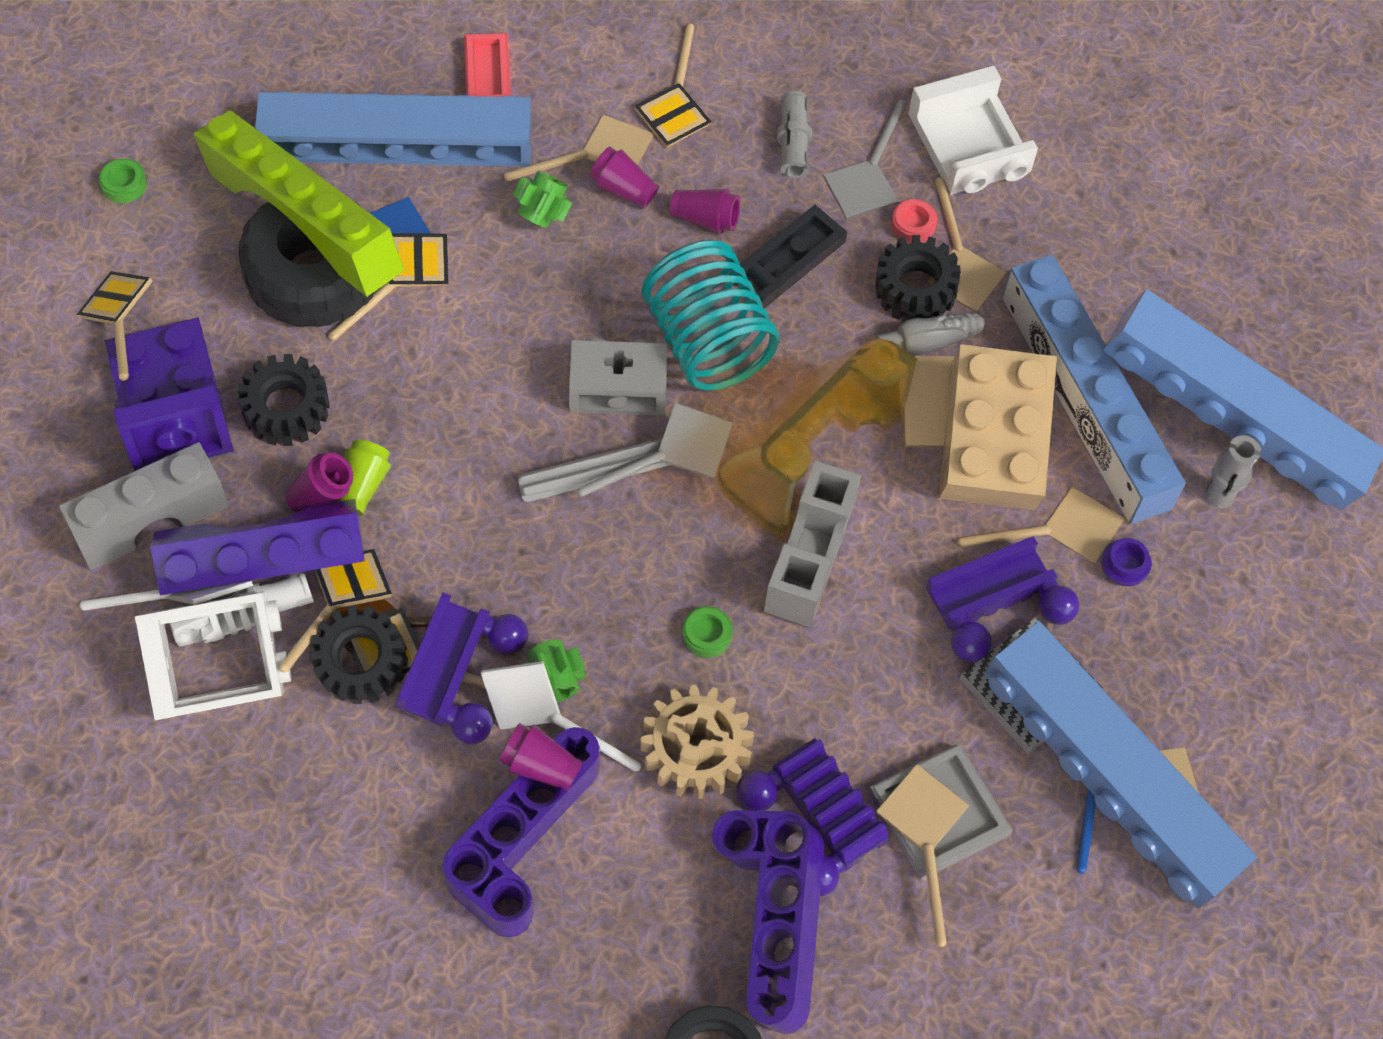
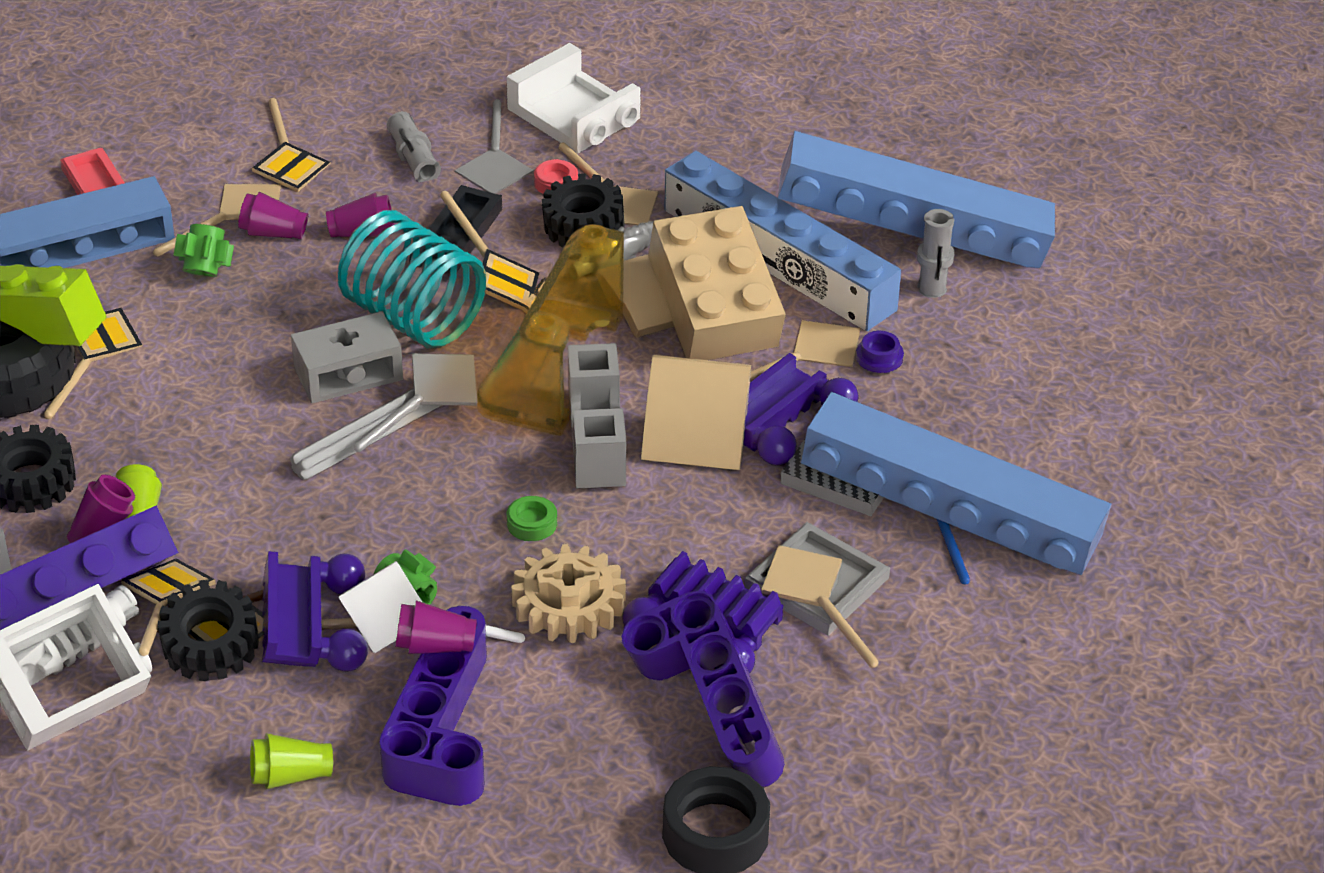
camera: 20 degrees left, 20 degrees down
(367, 830) = (288, 760): none -> lime cone
(807, 329) = (504, 277): none -> piece
(907, 579) = (696, 412): none -> tan slope

